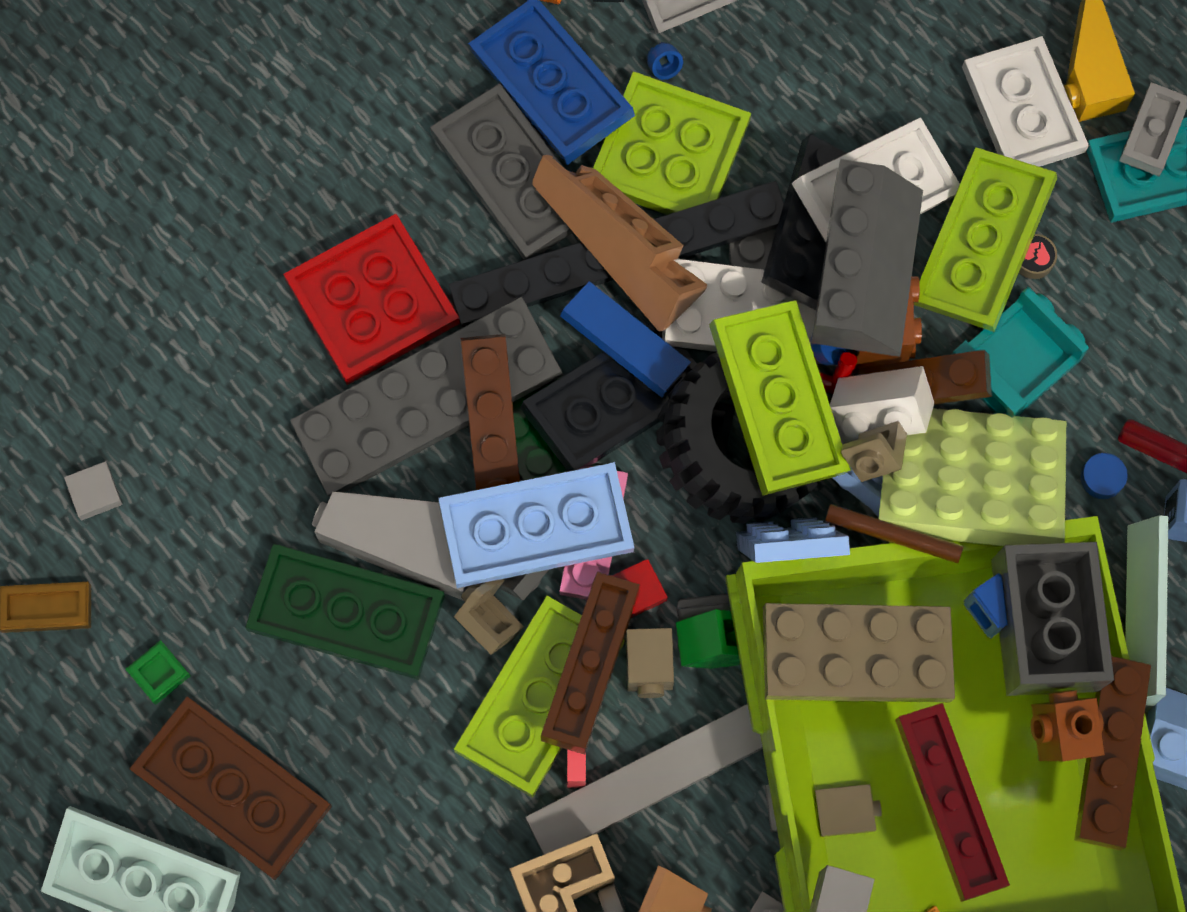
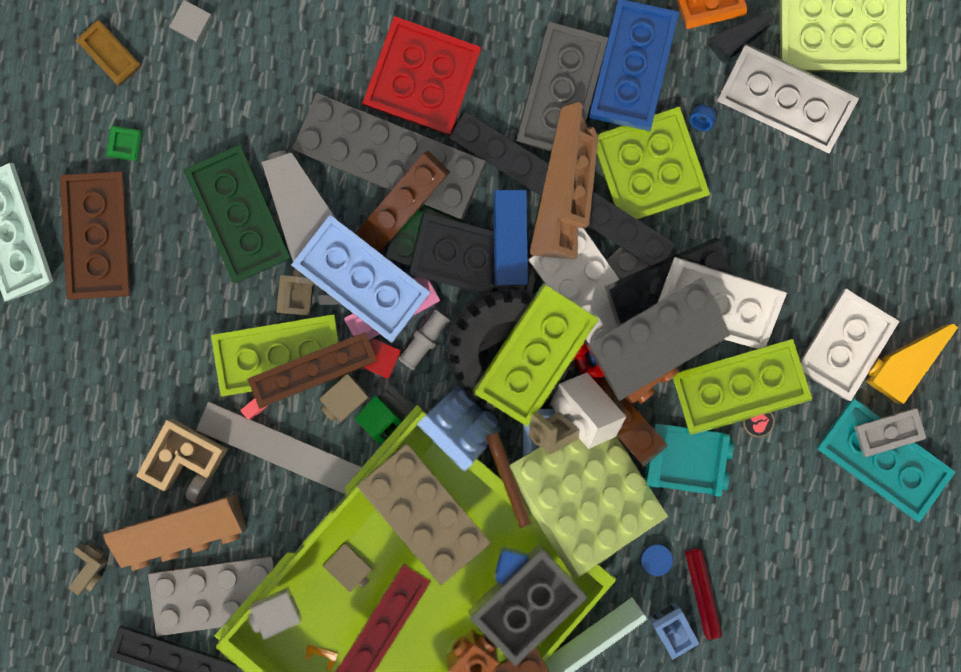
camera: 50 degrees right, 15 degrees up
(657, 523) = (424, 339): none -> light grey pin

